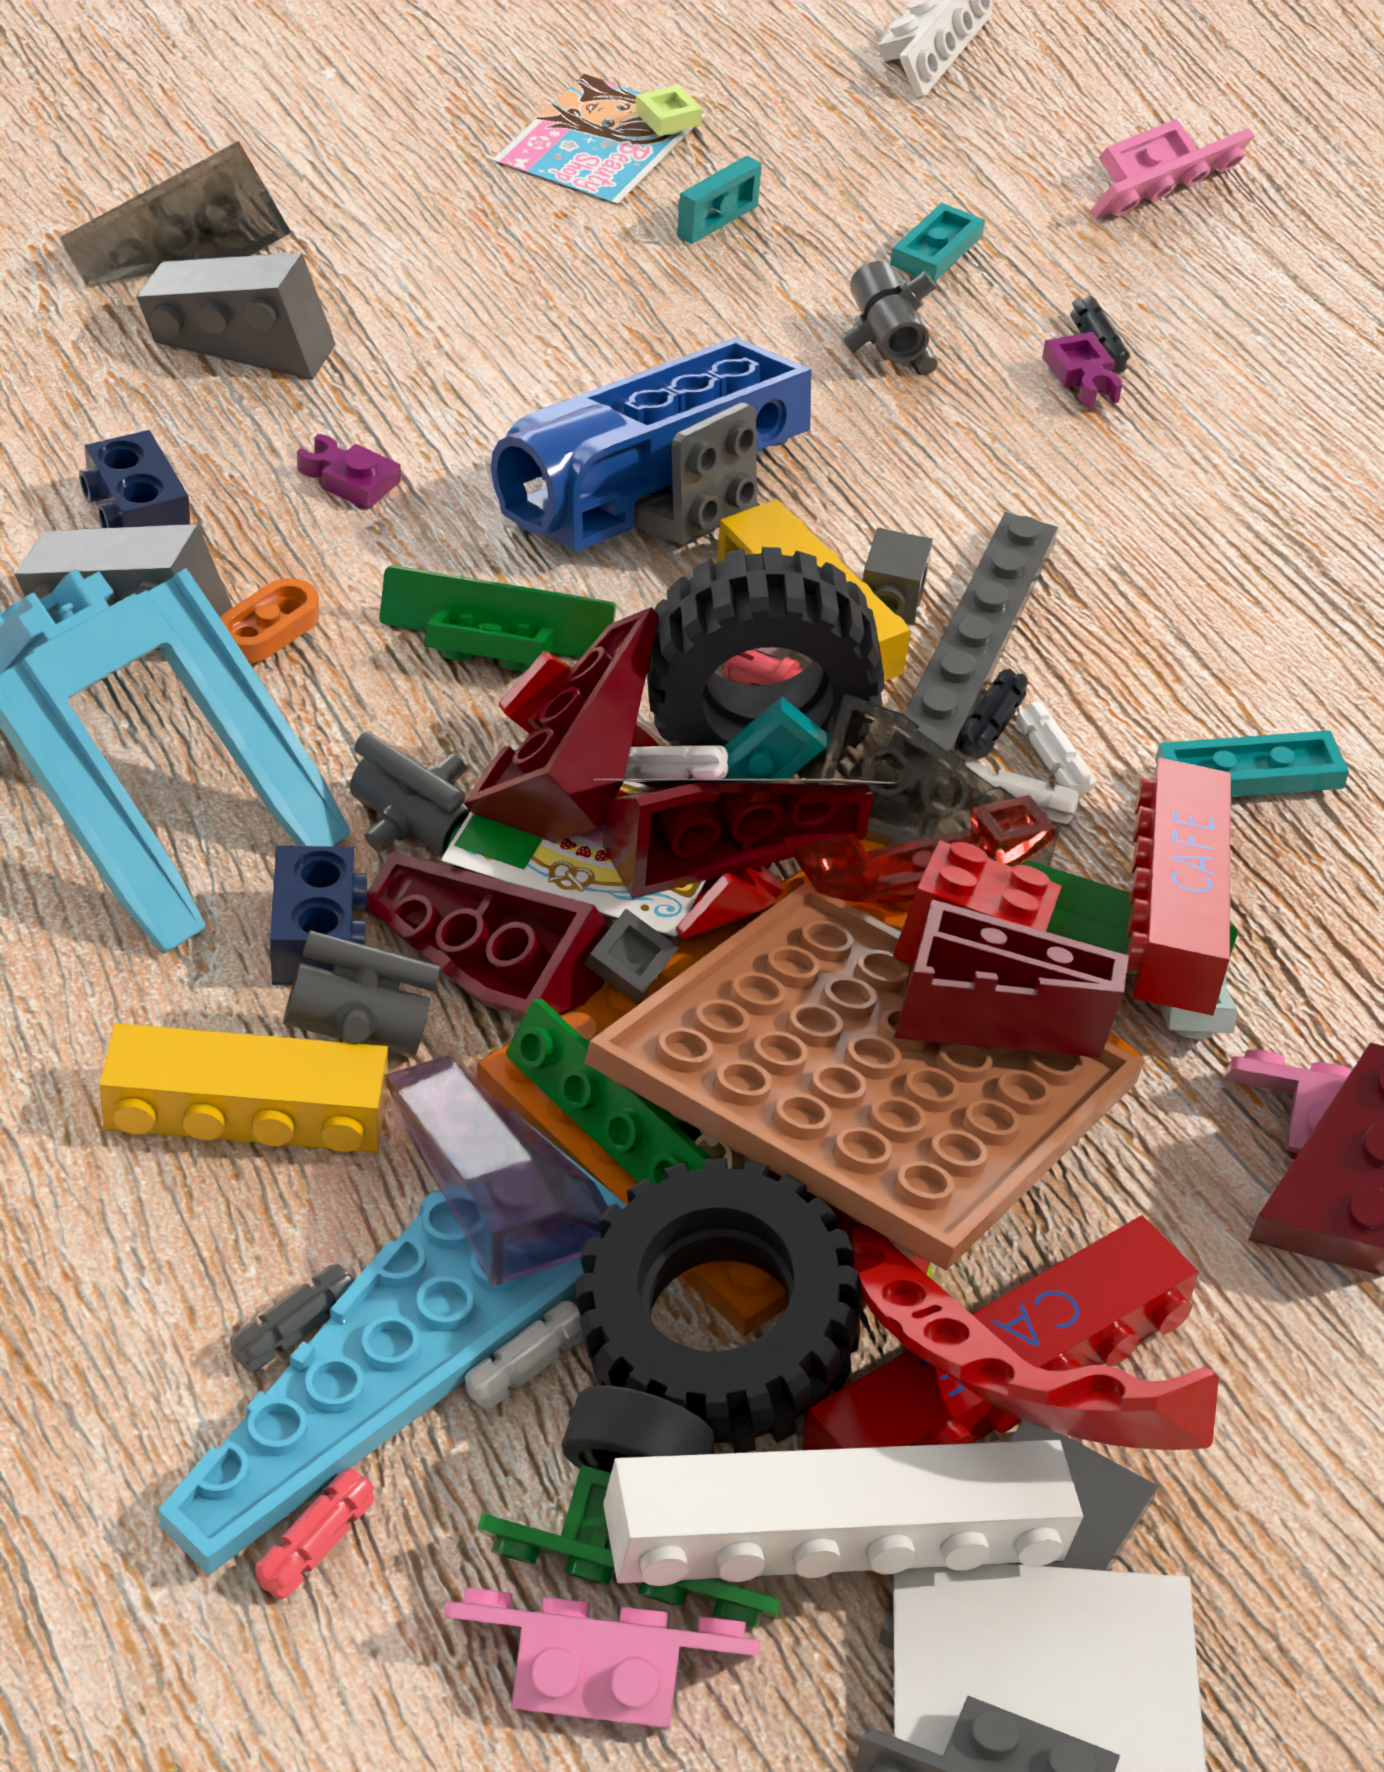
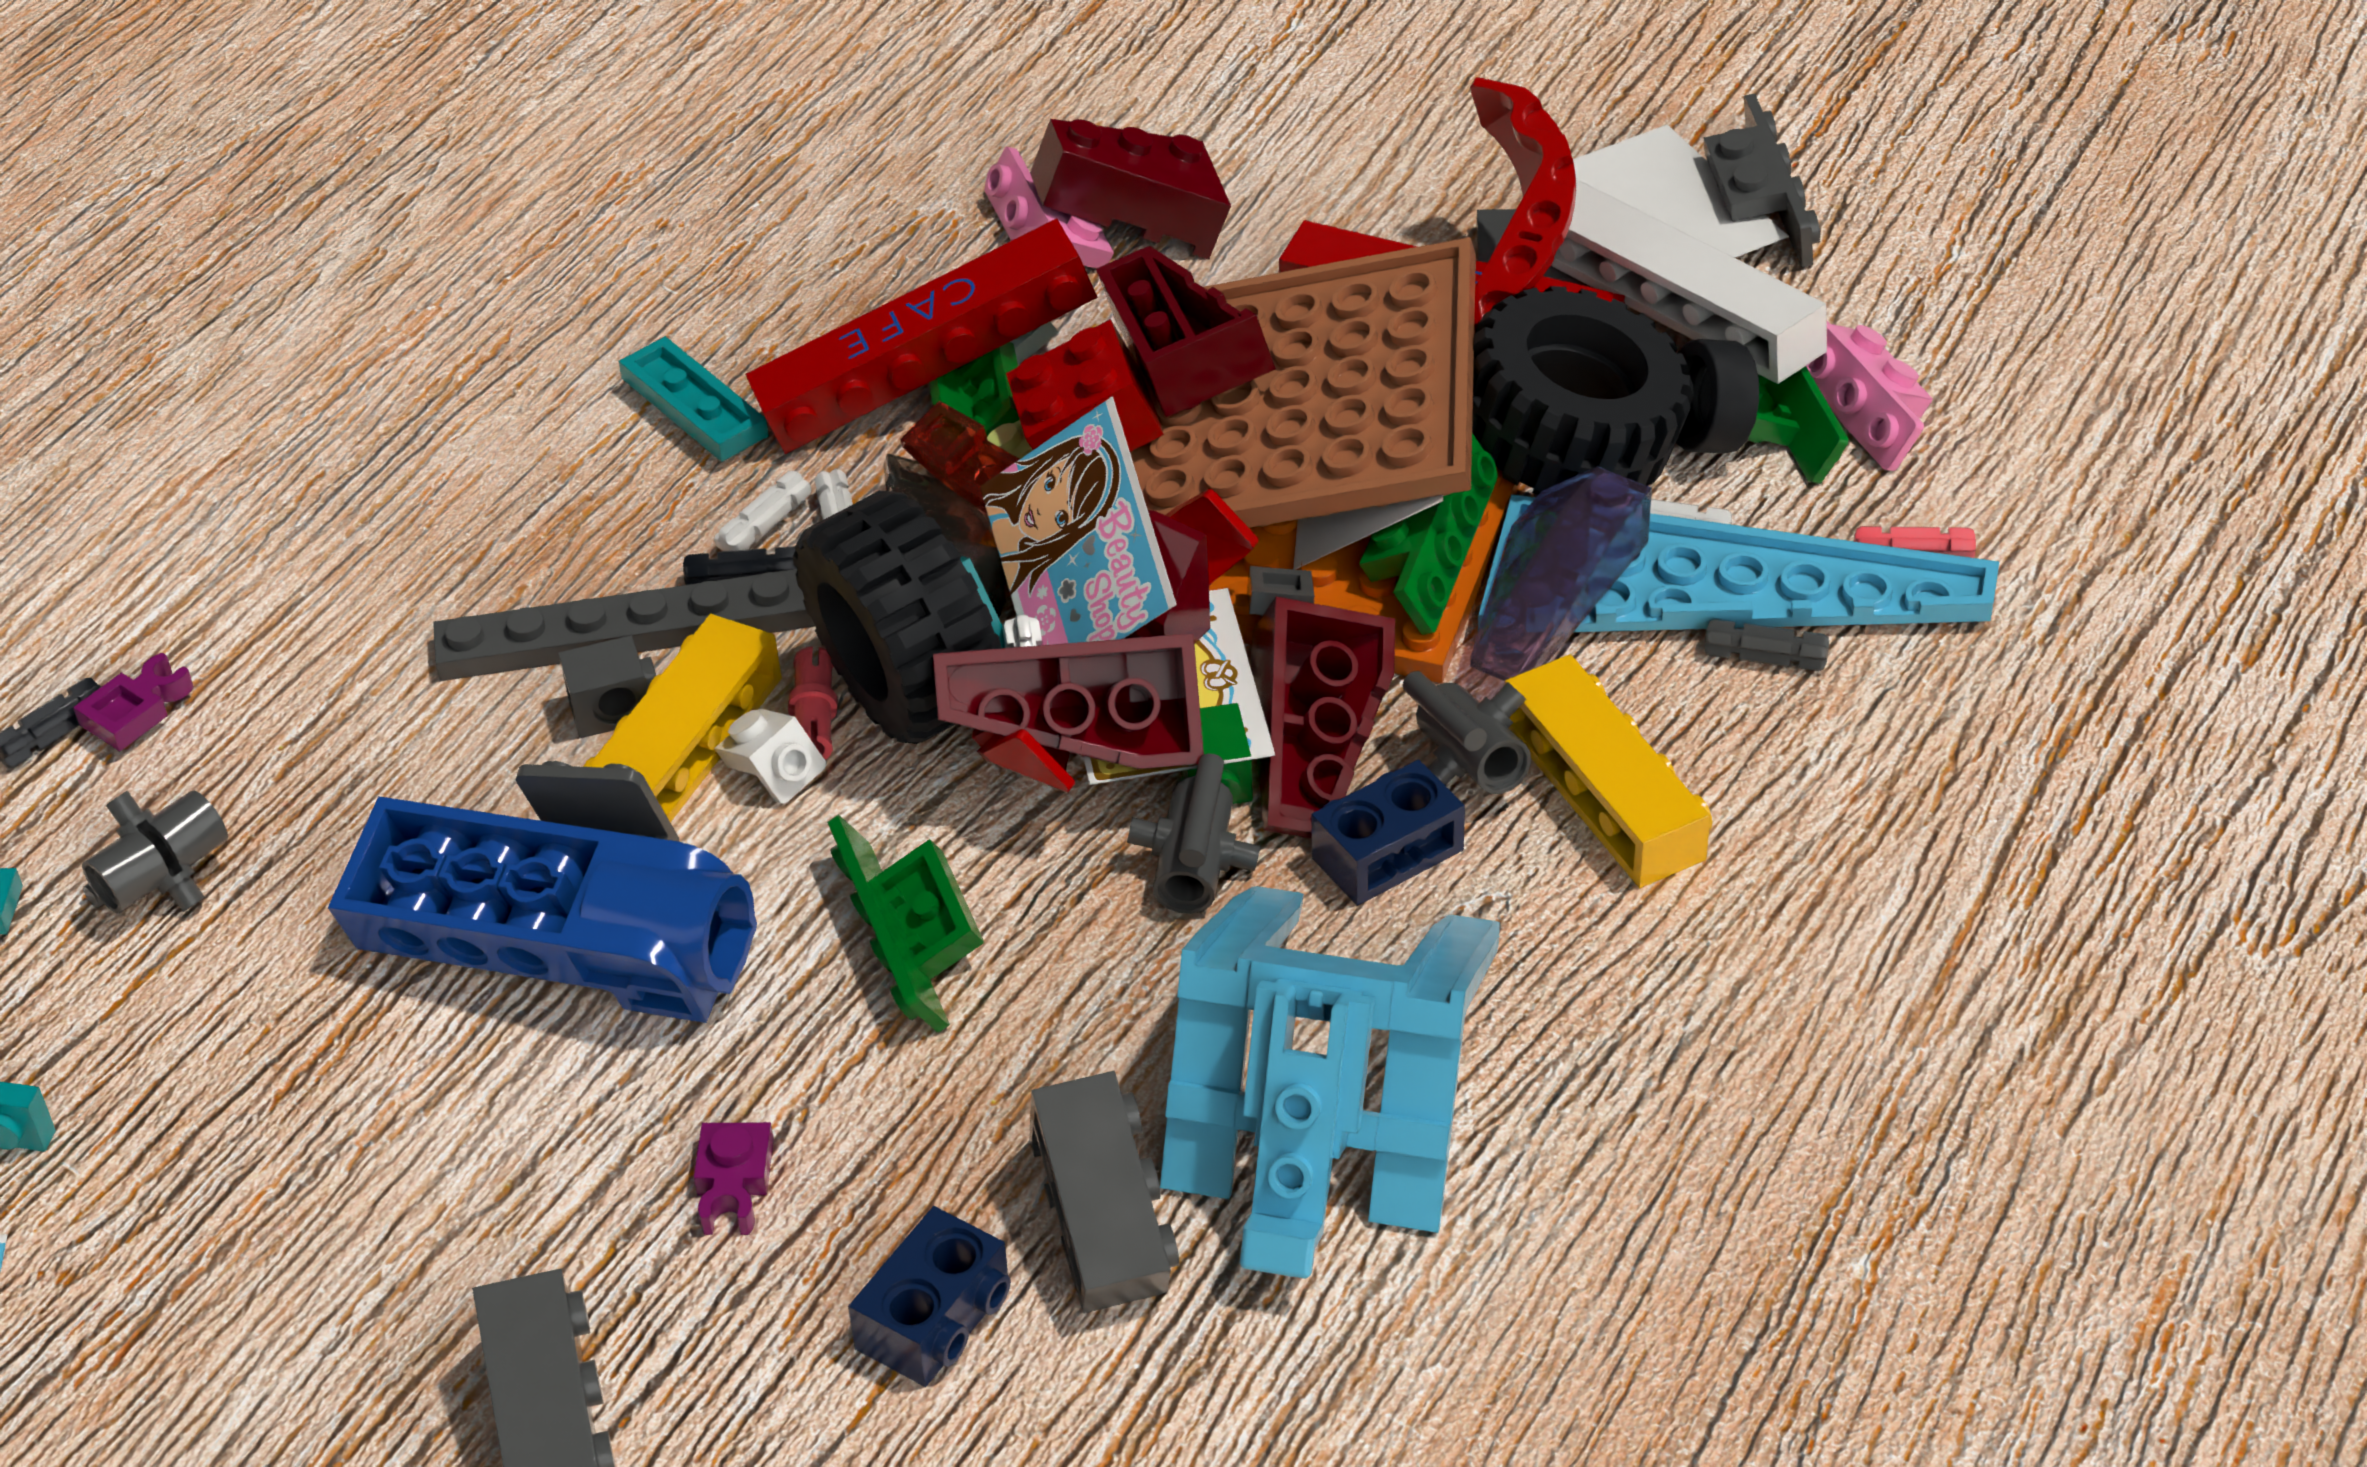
camera: 115 degrees left, 0 degrees up
(272, 617) = (1021, 1071): orange plate -> none

